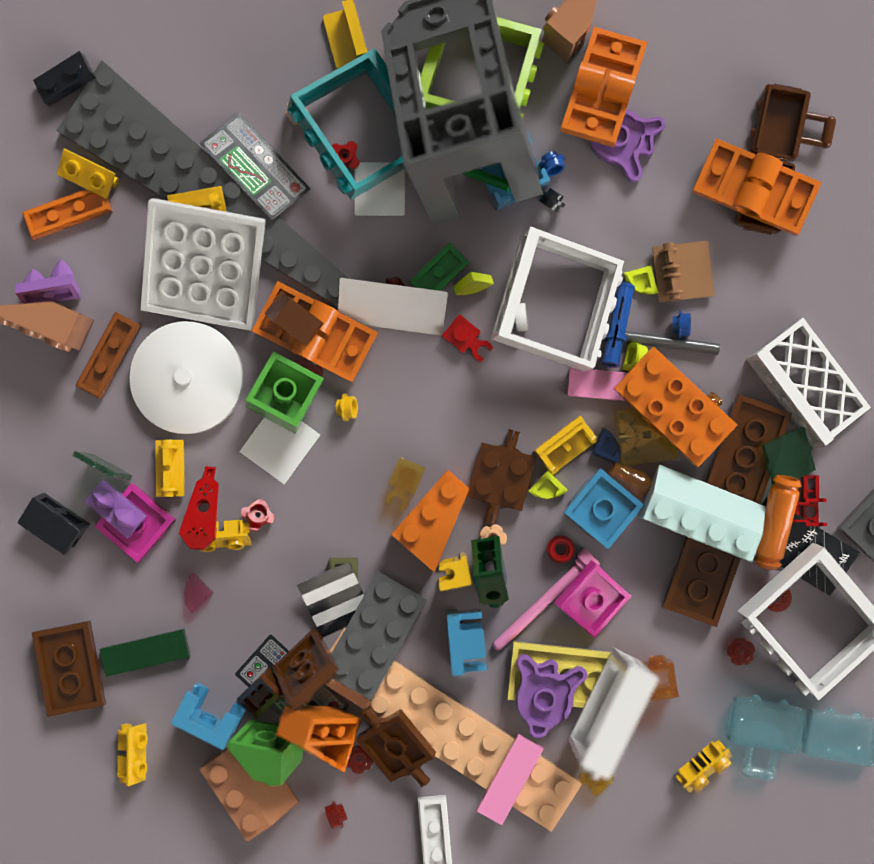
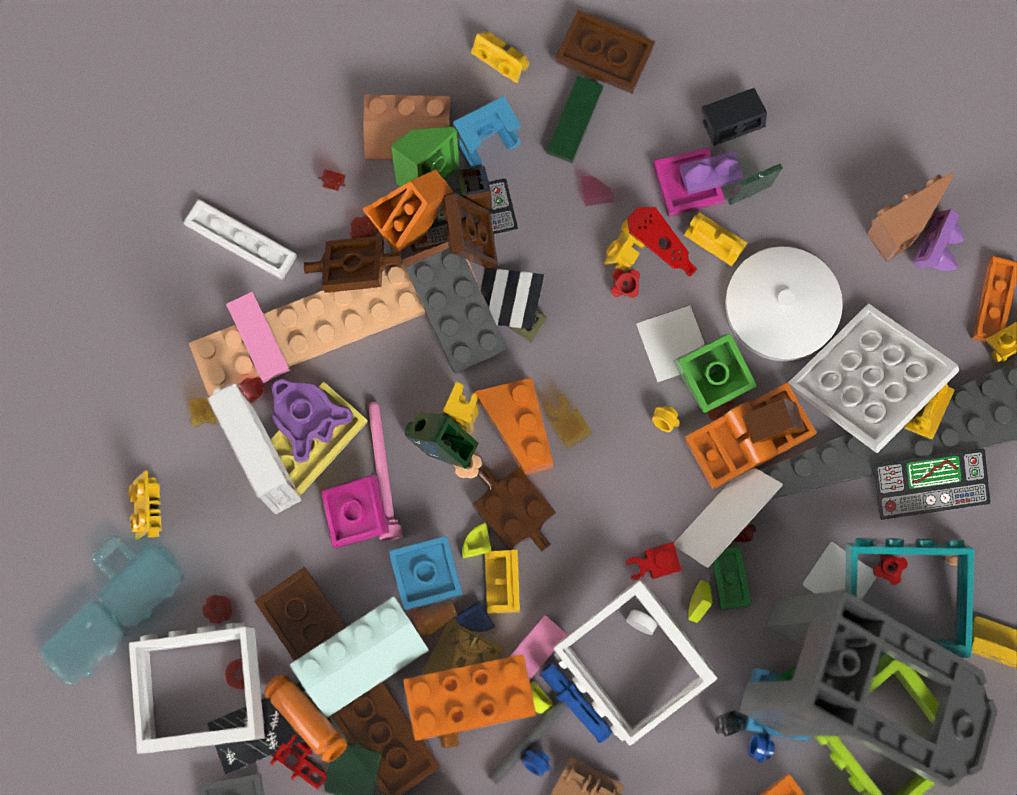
camera: 130 degrees right, 10 degrees down
(108, 355) = (847, 253): dark orange tile -> none
(466, 641) = (398, 377): dark azure panel -> none
(554, 753) = (252, 388): none -> clear red plate
(569, 549) = (412, 507): red plate -> none
(642, 280) = (601, 755): neon yellow tile -> none
(664, 670) = (247, 521): clear orange window -> none

